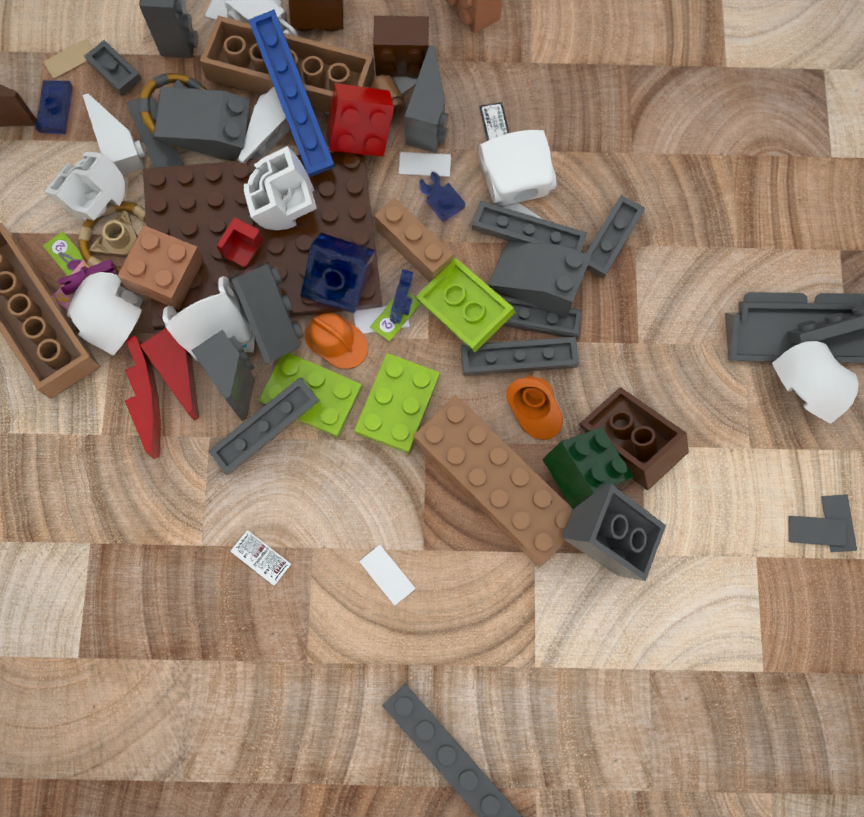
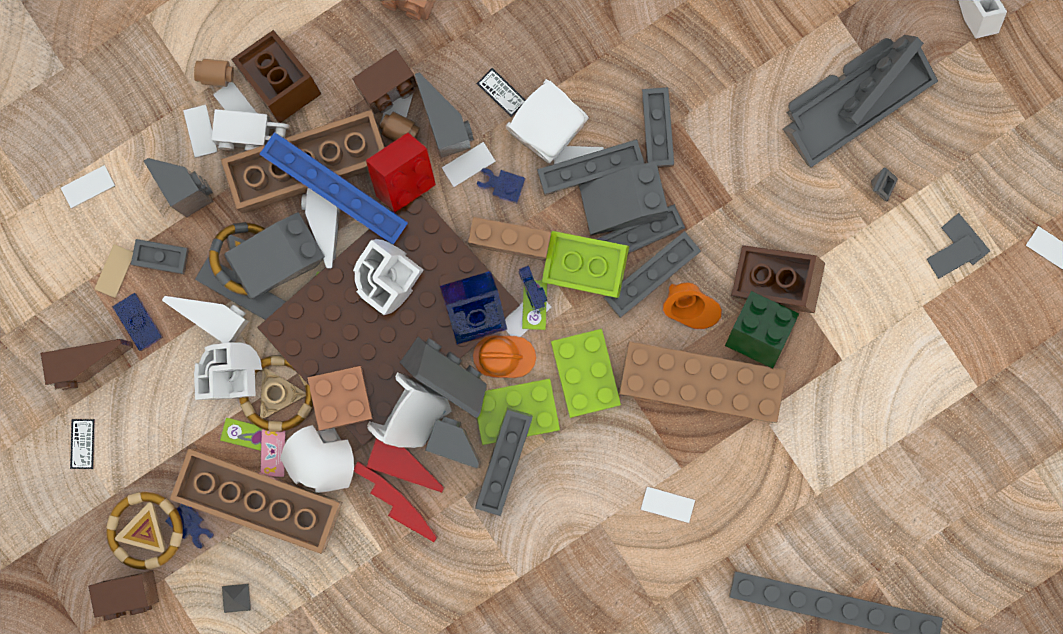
camera: 35 degrees left, 10 degrees up
(74, 280) = (276, 446): magenta axle -> none
(240, 243) = (383, 337): red panel -> none
(260, 557) = (568, 556): white sticker -> none
(615, 532) = (814, 364): dark grey slope -> none
(792, 419) = (884, 184): none -> dark grey slope
(817, 379) = (884, 143): white brick -> none

